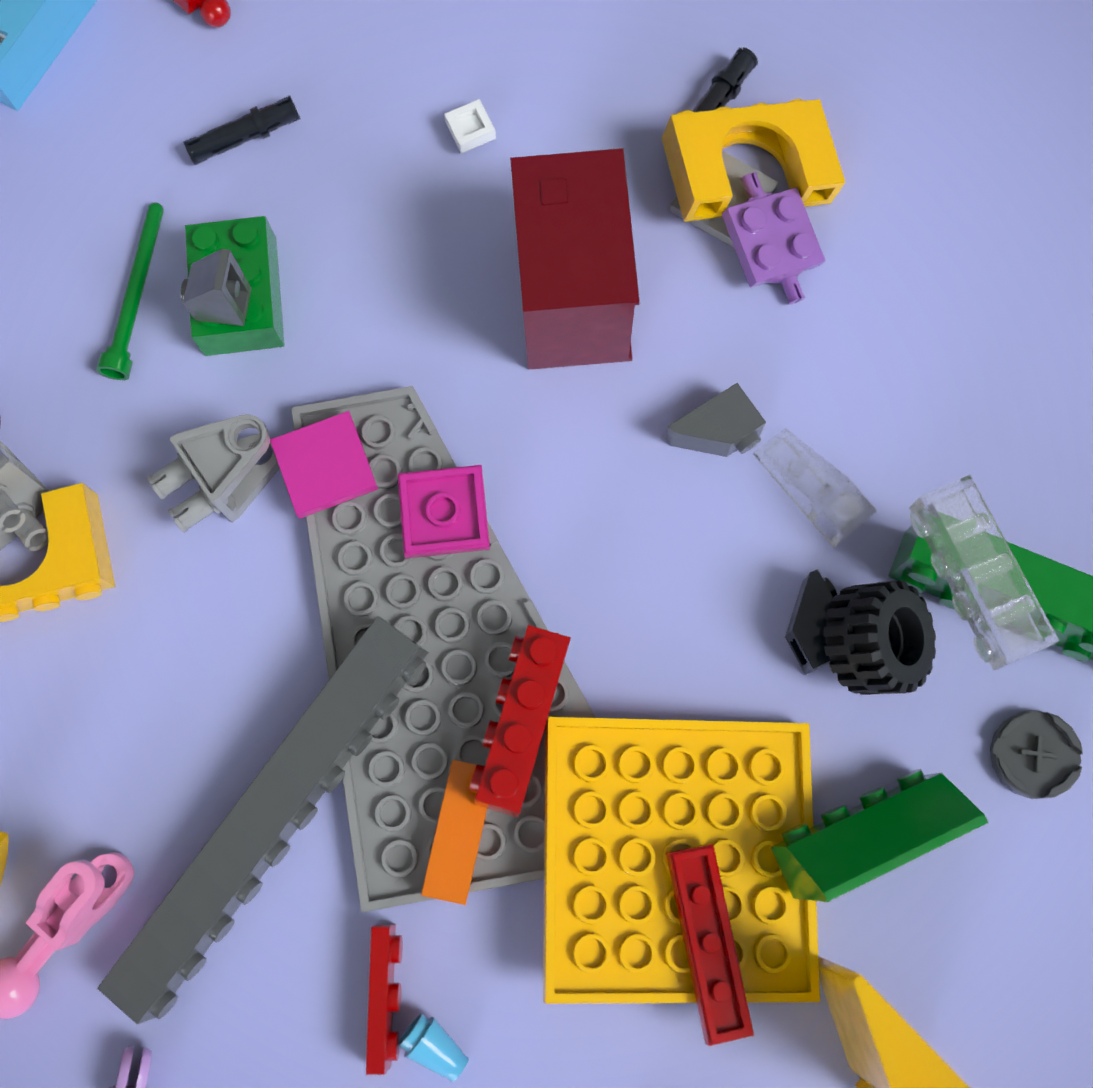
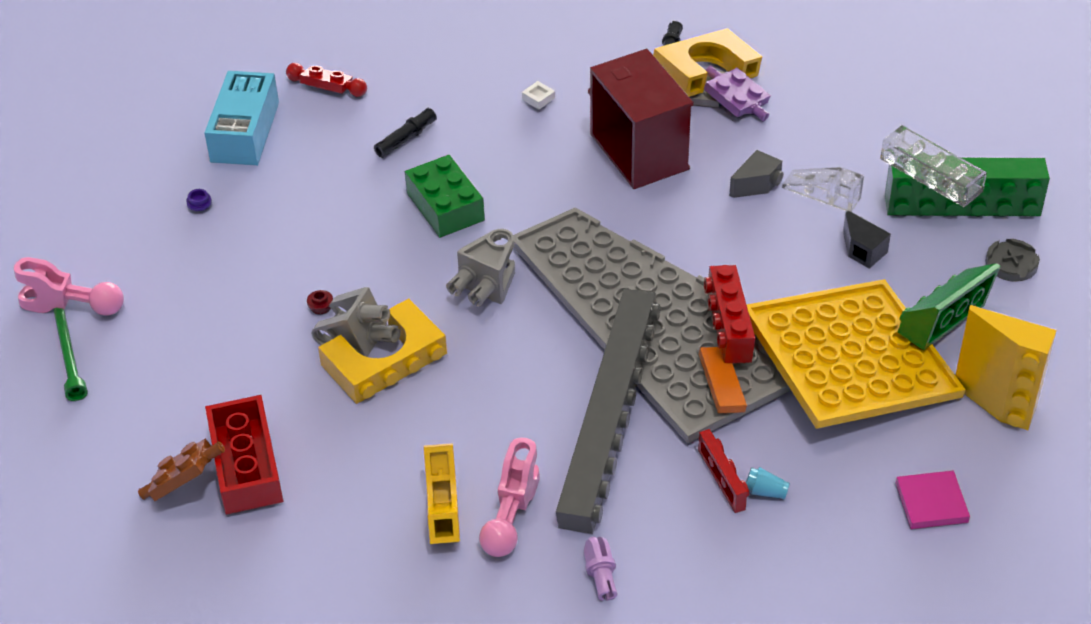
camera: 25 degrees left, 30 degrees down
(116, 361) = (389, 250): green piece -> none
(217, 290) = (449, 178): dark grey slope -> none
(323, 464) = (546, 251): dark pink tile -> none
(443, 511) = (627, 251): dark pink tile -> none
(709, 945) = (890, 375): red tile -> none
(880, 638) = (899, 223): black tyre -> none

